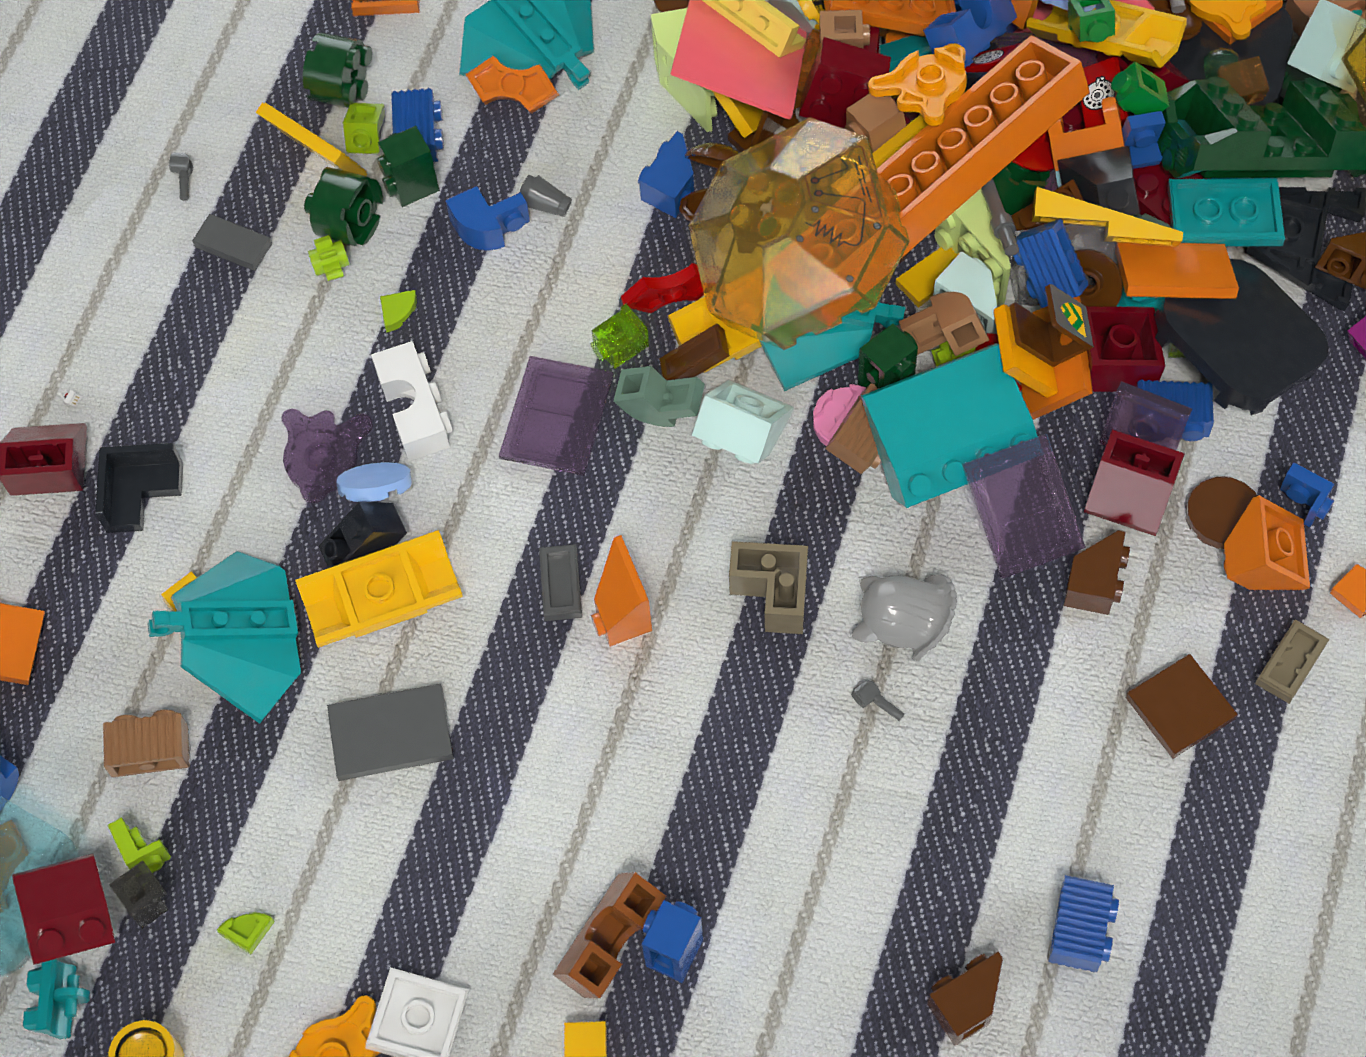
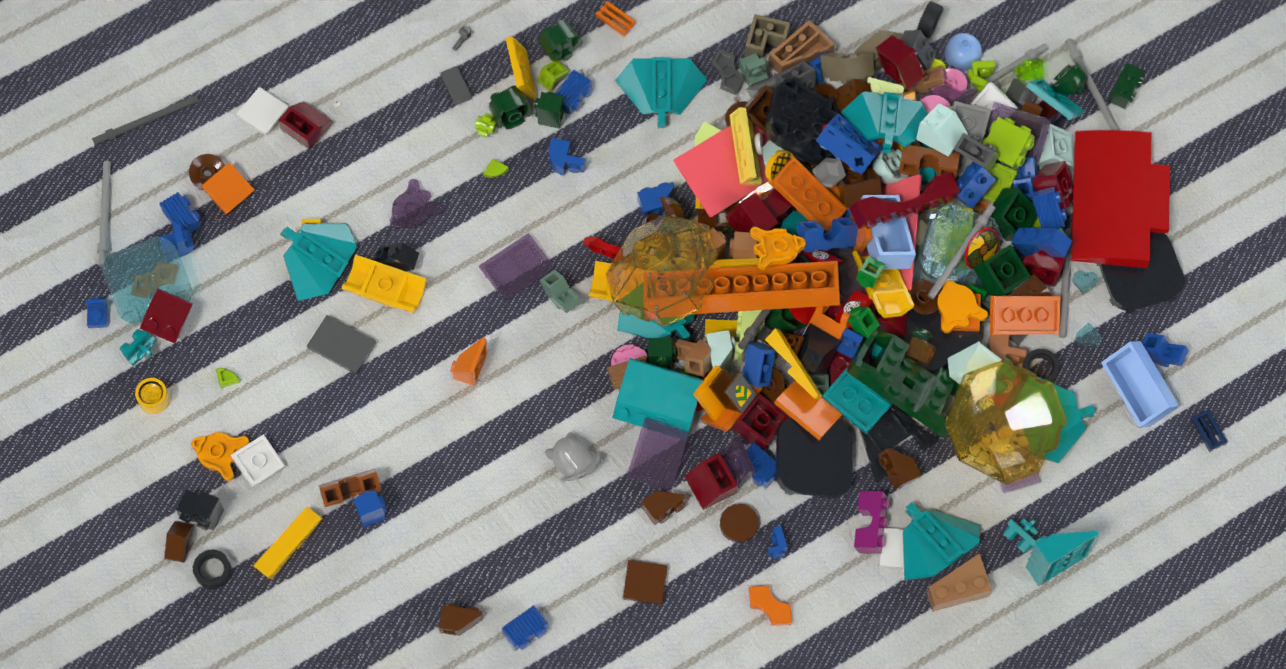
camera: 35 degrees right, 5 degrees up
(129, 477) = (329, 159): black panel -> none
(134, 848) = (210, 314): lime bracket -> none
(140, 894) = (198, 333): clear smoke brick -> none
(146, 744) = (248, 275): medium nougat brick -> none
(373, 481) = (419, 237): light blue tile -> none
(421, 425) = (460, 229): white arch -> none
(498, 82) = (634, 111): orange tile -> none
(544, 196) = (596, 166): dark grey cone -> none
(560, 582) = (456, 337): dark grey tile -> none
(620, 337) = (574, 258): clear neon green brick -> none
(695, 355) = (589, 287): reddish brown tile -> none
(741, 421) = (585, 329): light aqua slope -> none
(772, 573) = (537, 406): dark tan brick -> none
(844, 27) = (769, 190): medium nougat brick -> none
(869, 692) = (530, 477): dark grey hand -> none
(1267, 549) = (739, 551): orange slope -> none
(1292, 661) = (703, 601): dark tan plate -> none

